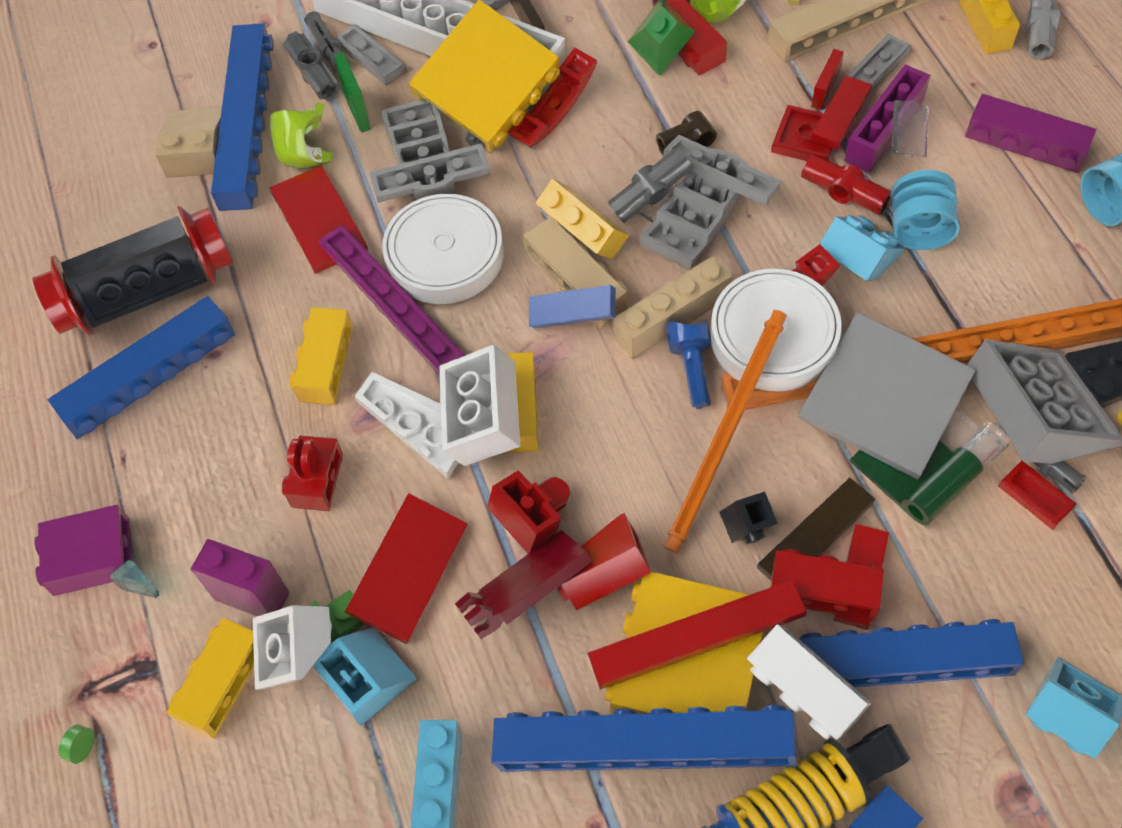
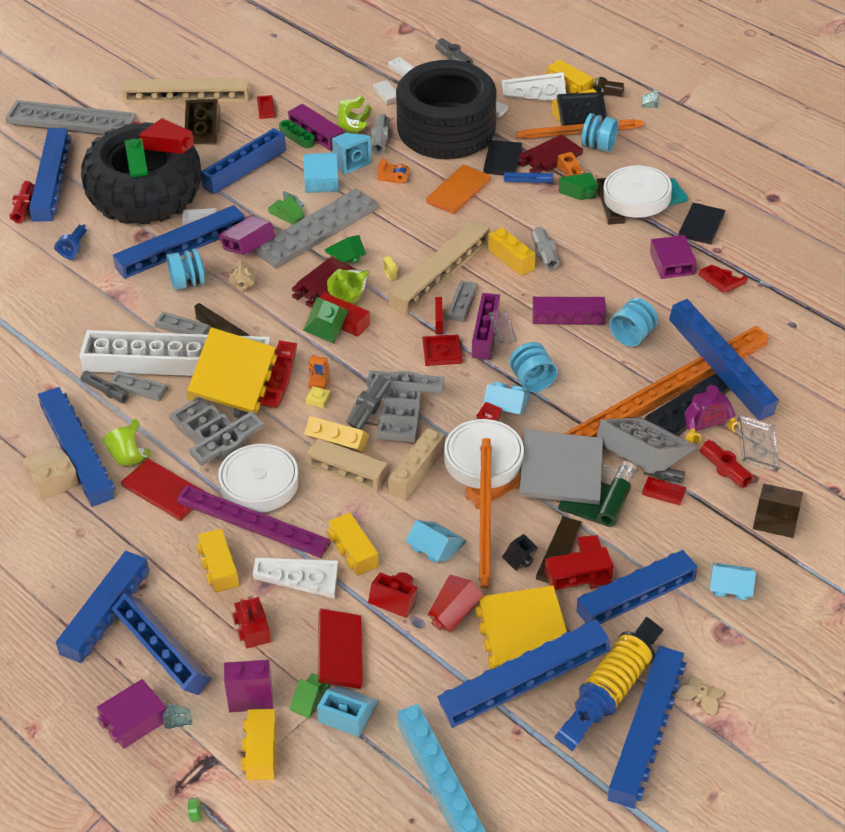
camera: 30 degrees left, 15 degrees down
(131, 272) = (69, 551): black brick -> none
(174, 460) = (161, 644): none -> blue brick
(289, 643) = (298, 703): white slope -> none
(311, 66) = (104, 403): dark grey piece -> none
(352, 92) = (147, 409): green tile -> none
(479, 406) = (339, 546): white brick -> none
(524, 583) = (415, 627): dark red tile -> none
(572, 306) = (359, 481): tile -> none
(594, 150) = (318, 397): none -> light yellow plate
(608, 114) = (318, 372): none -> orange leg
(635, 443) = (434, 540): none -> medium azure slope
(689, 342) = (437, 477): blue piece -> none
(694, 127) = (373, 363): dark brown piece -> none
(696, 634) = (524, 613): red tile -> none
(807, 683) = (590, 603): white brick -> none
(841, 112) = (457, 330): red tile -> none
(846, 184) = (480, 368): red piece -> none

